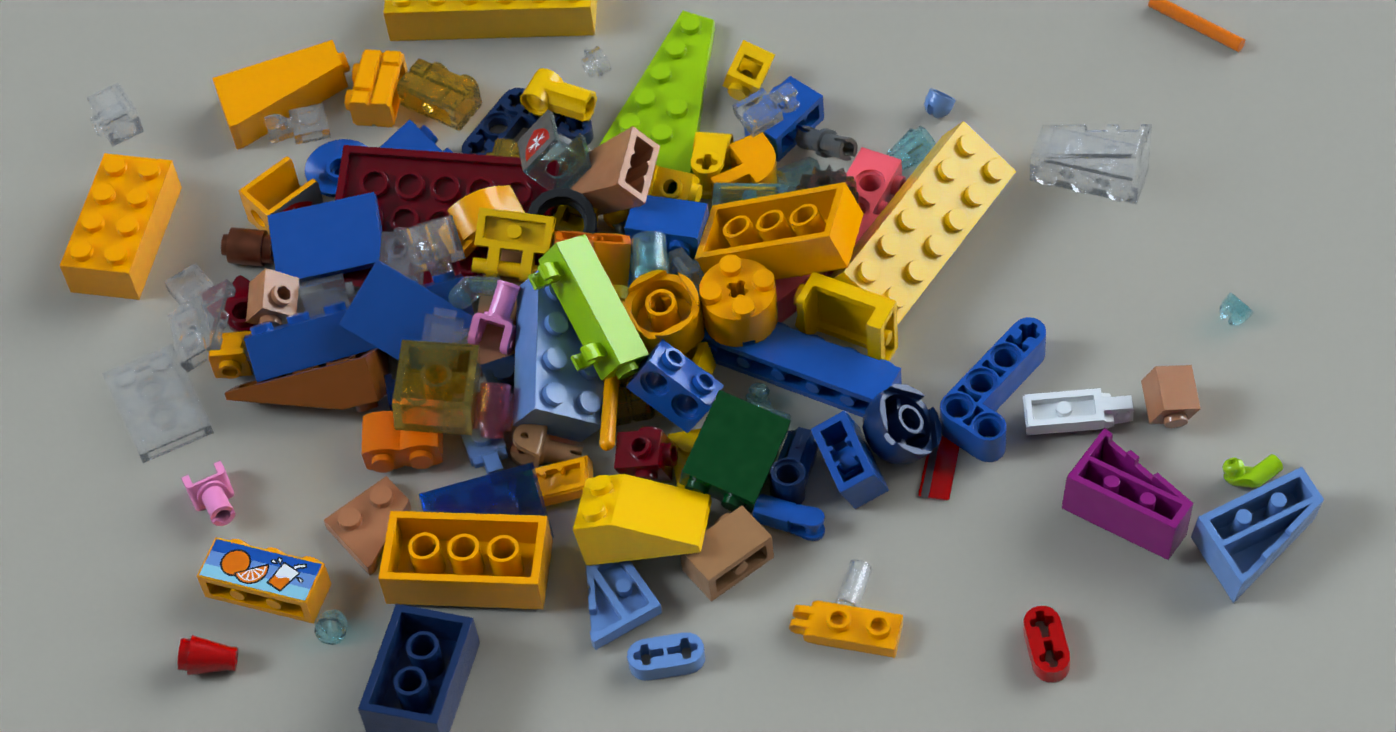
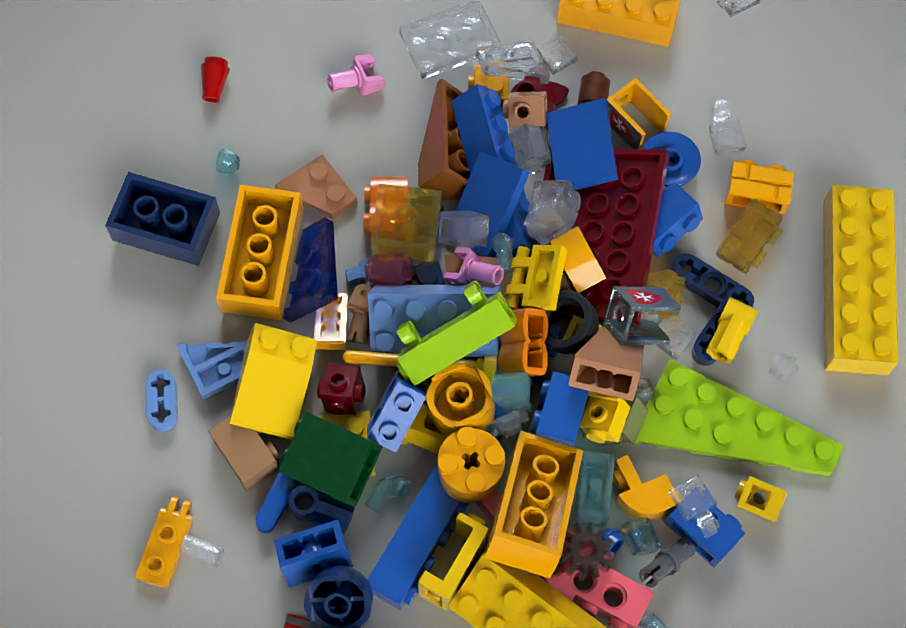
camera: 85 degrees right, 15 degrees up
(264, 579) = (272, 114): brick -> none
(279, 86) = (761, 109): light orange slope -> none
(710, 158) = (661, 459): yellow piece -> none

